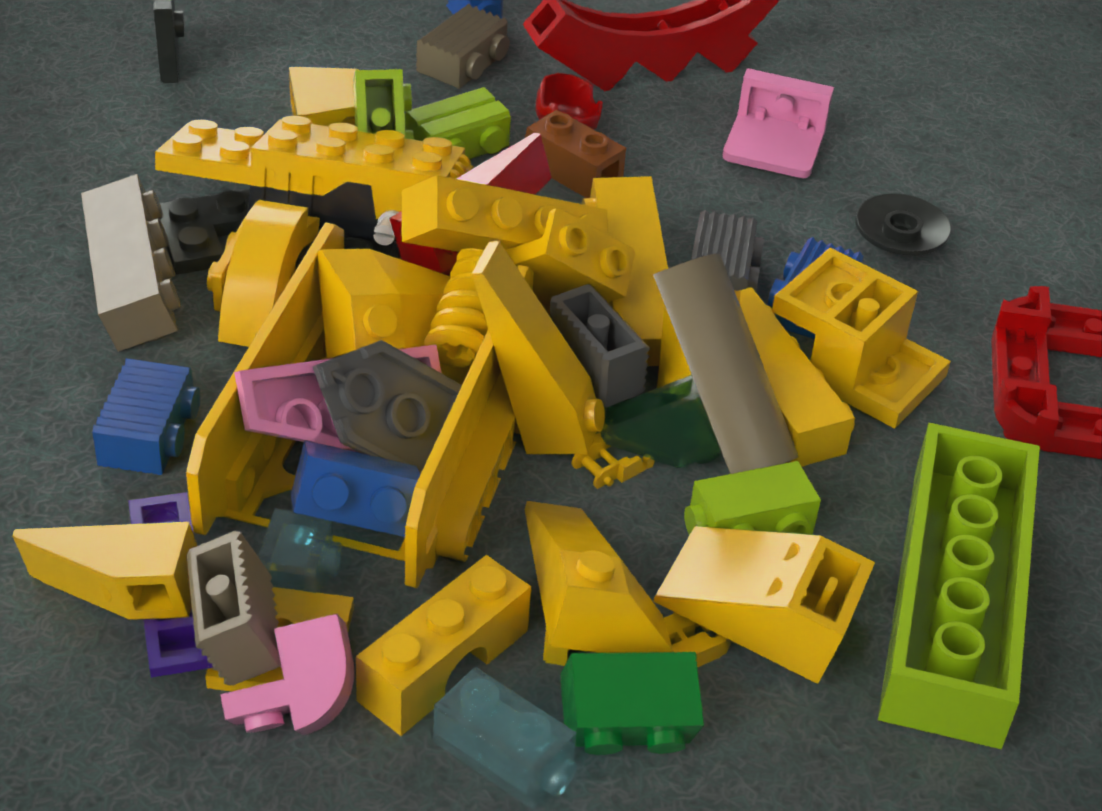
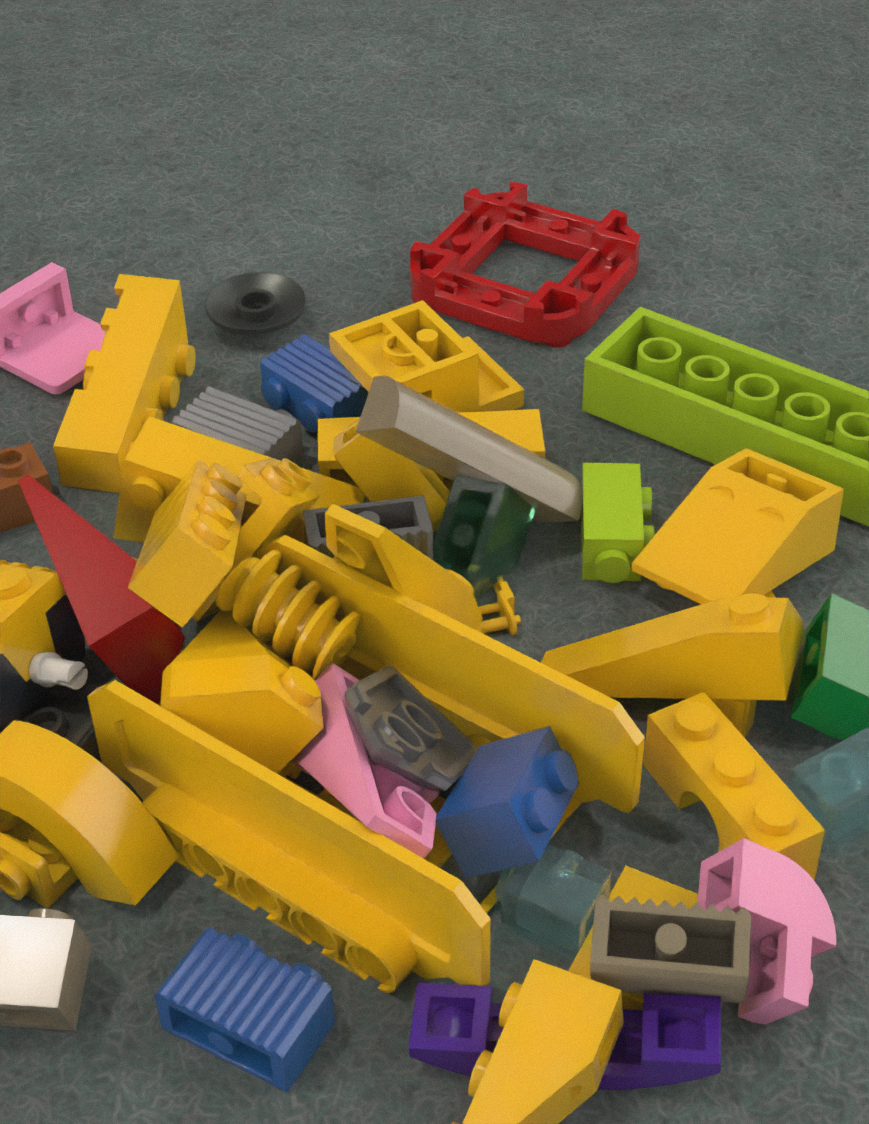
camera: 65 degrees left, 0 degrees up
(756, 176) = (125, 382): none -> yellow wedge

